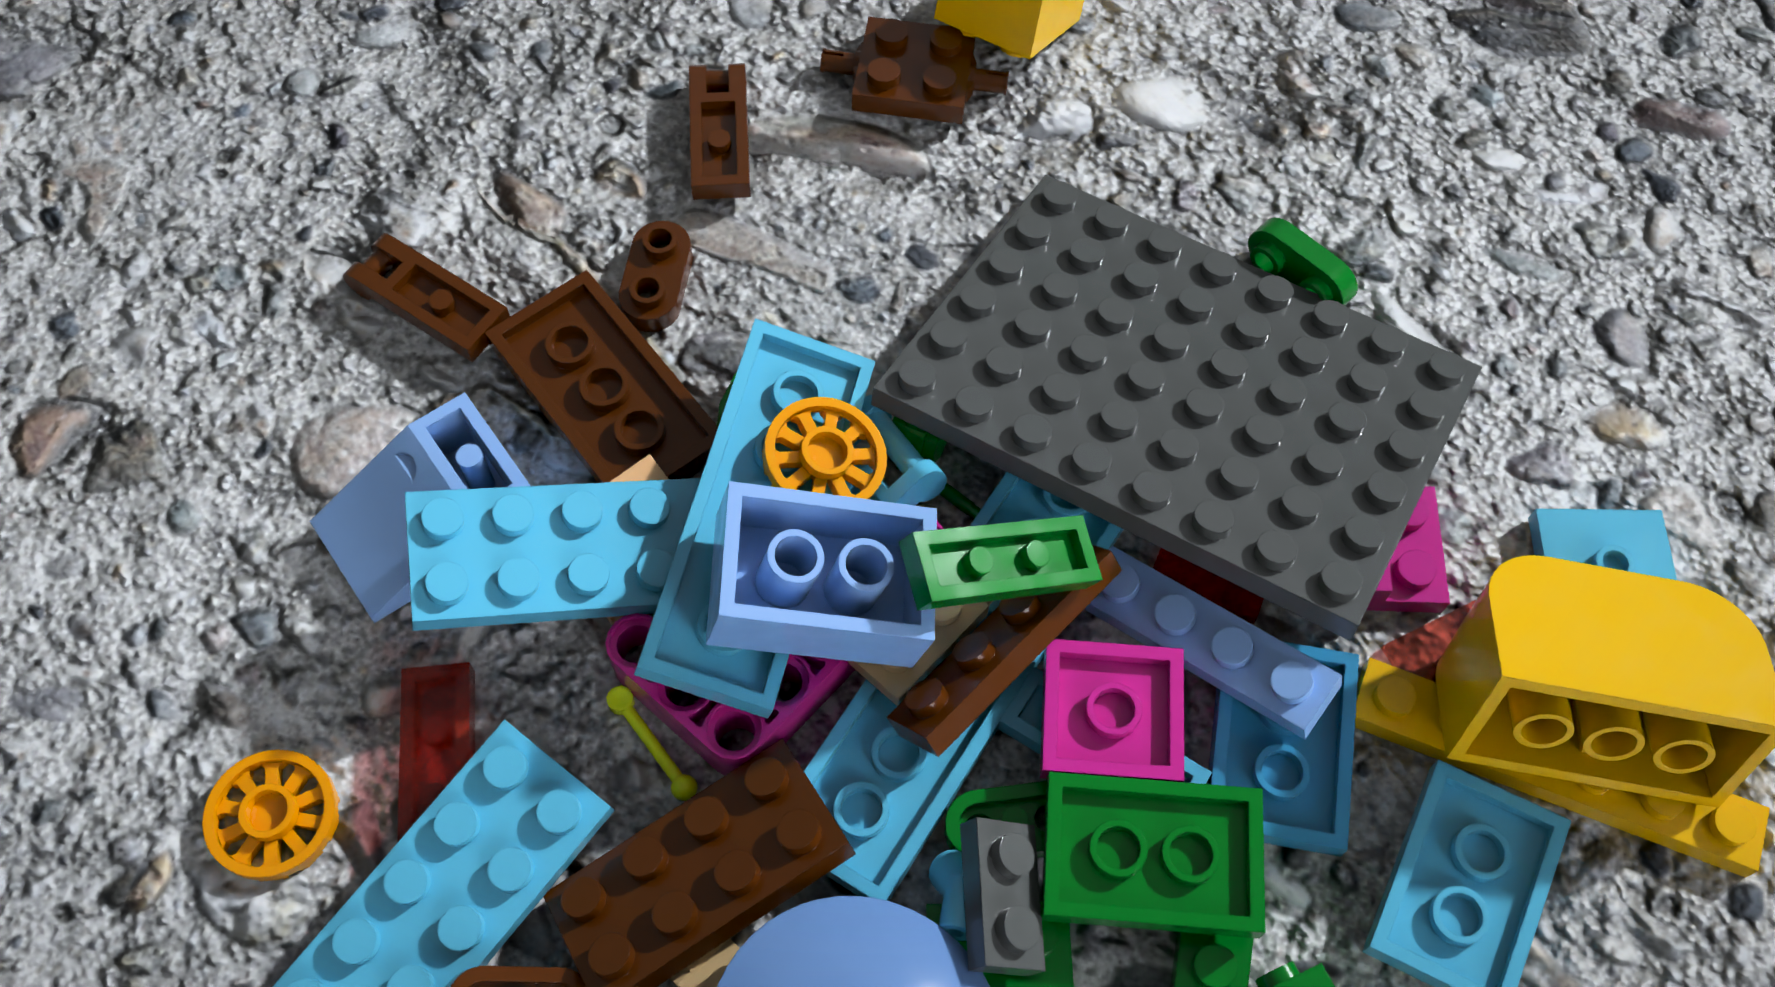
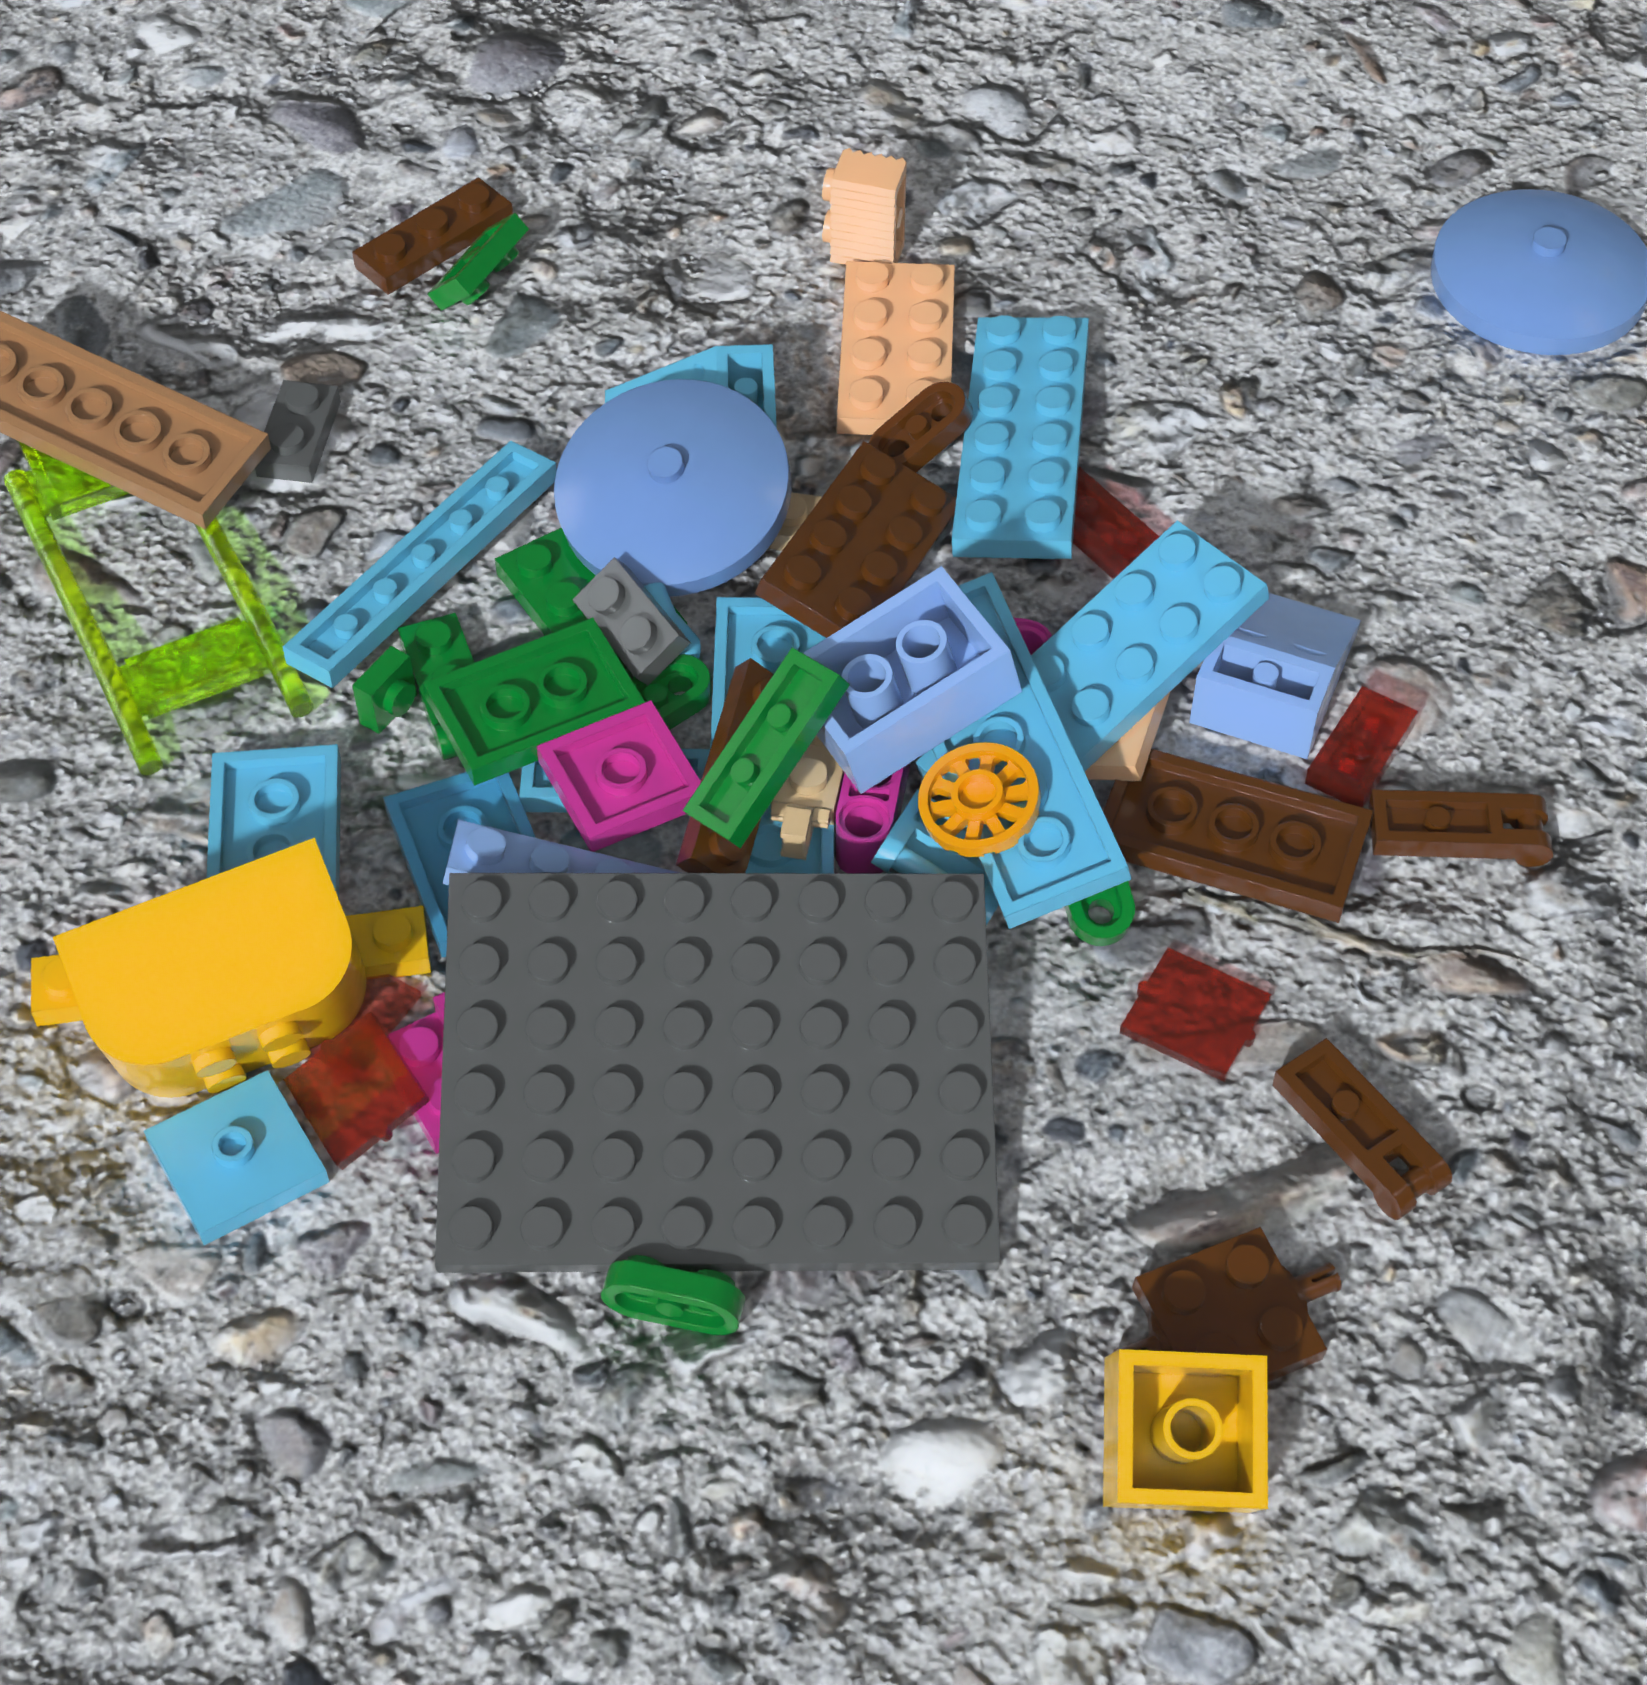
camera: 150 degrees right, 10 degrees down
(270, 815) = (1192, 461): light orange wheel -> none
(412, 397) = (1361, 747): none -> clear red plate
(658, 271) = (1283, 956): reddish brown plate -> none
(757, 279) = (1195, 1014): none -> clear red piece
(1470, 550) = (356, 1090): none -> clear red piece

